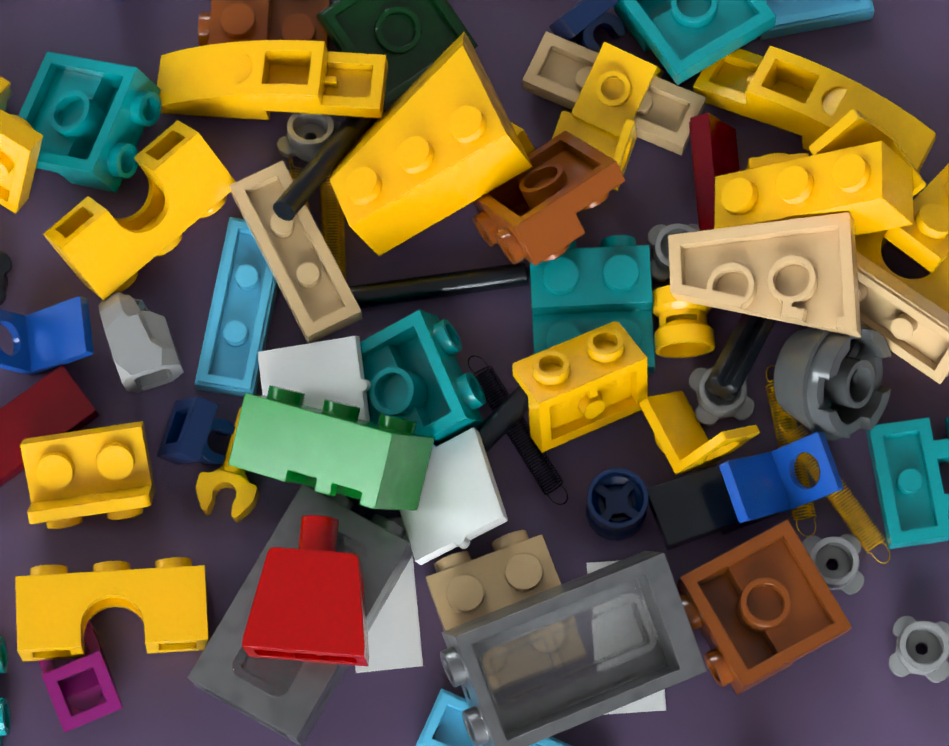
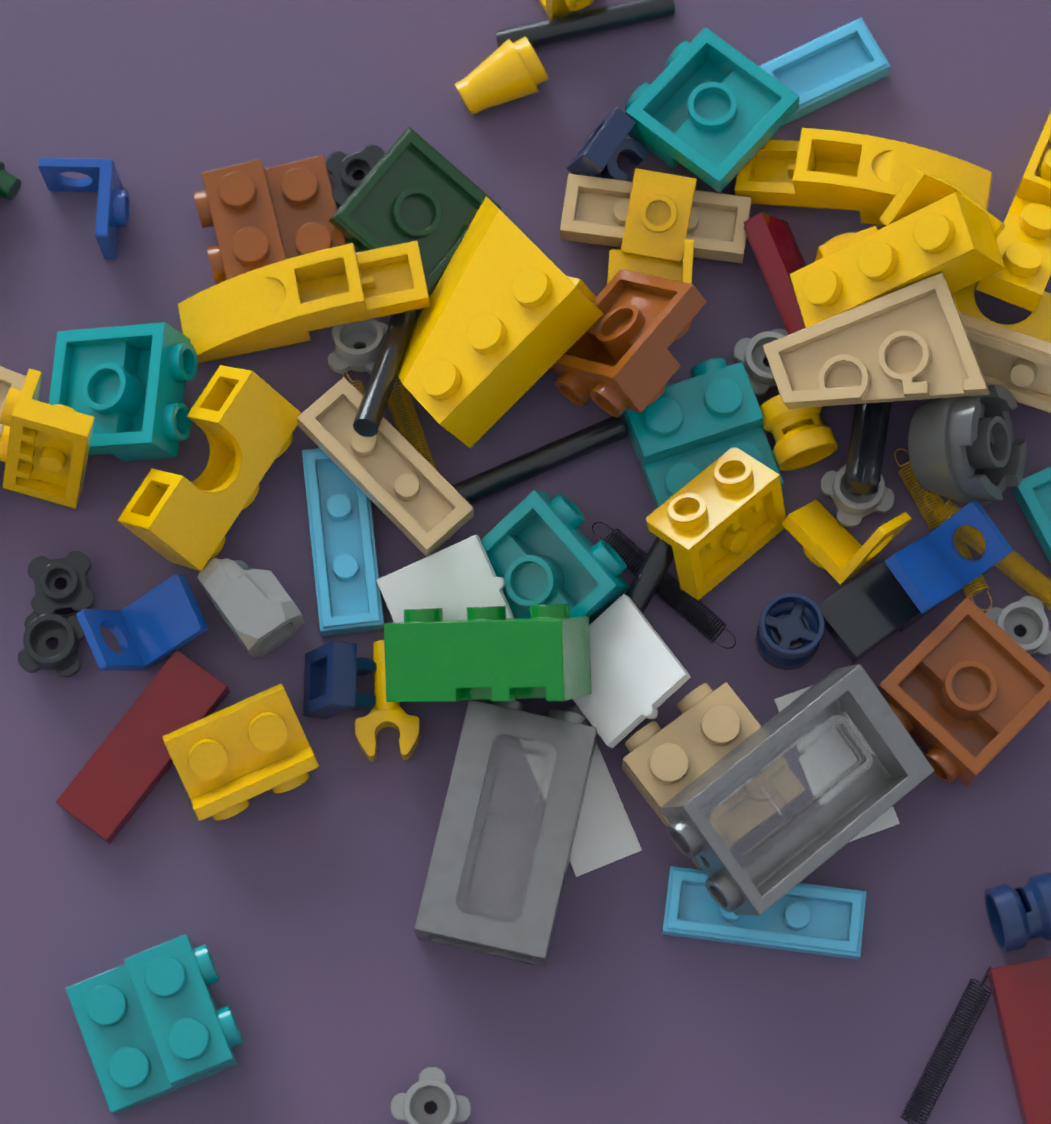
camera: 20 degrees left, 0 degrees up
(59, 604) = (363, 858): yellow arch -> none
(81, 686) = (284, 950): magenta slope -> none
(310, 601) = (521, 814): red torso -> none

